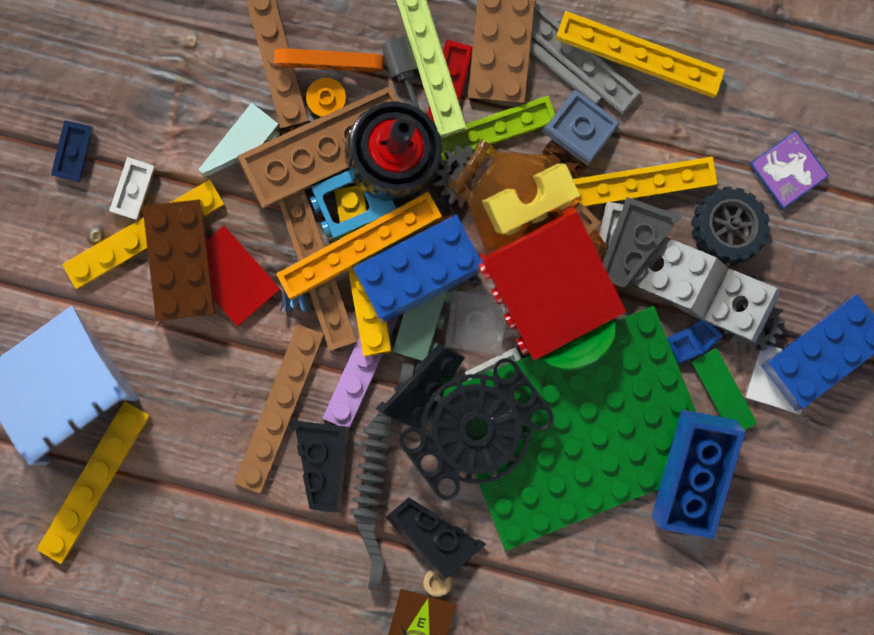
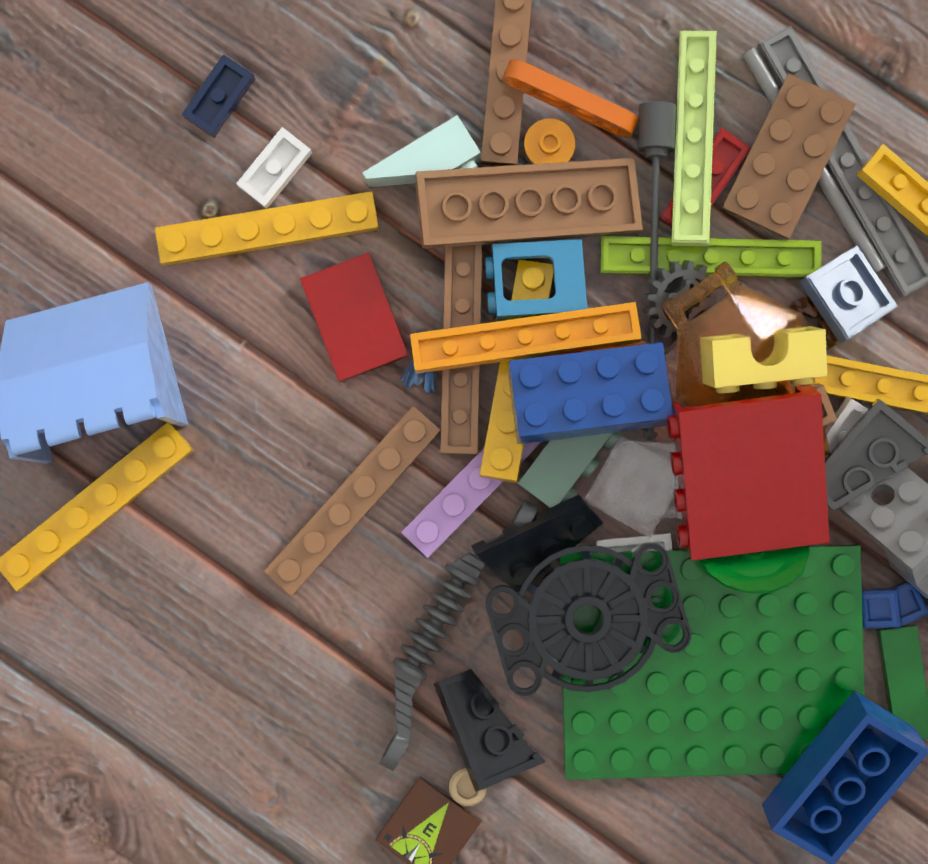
camera: 20 degrees right, 0 degrees up
(178, 260) = (297, 272): reddish brown brick -> none
(323, 462) = (382, 586): black wing -> none
(393, 151) = (610, 235): black wheel -> none

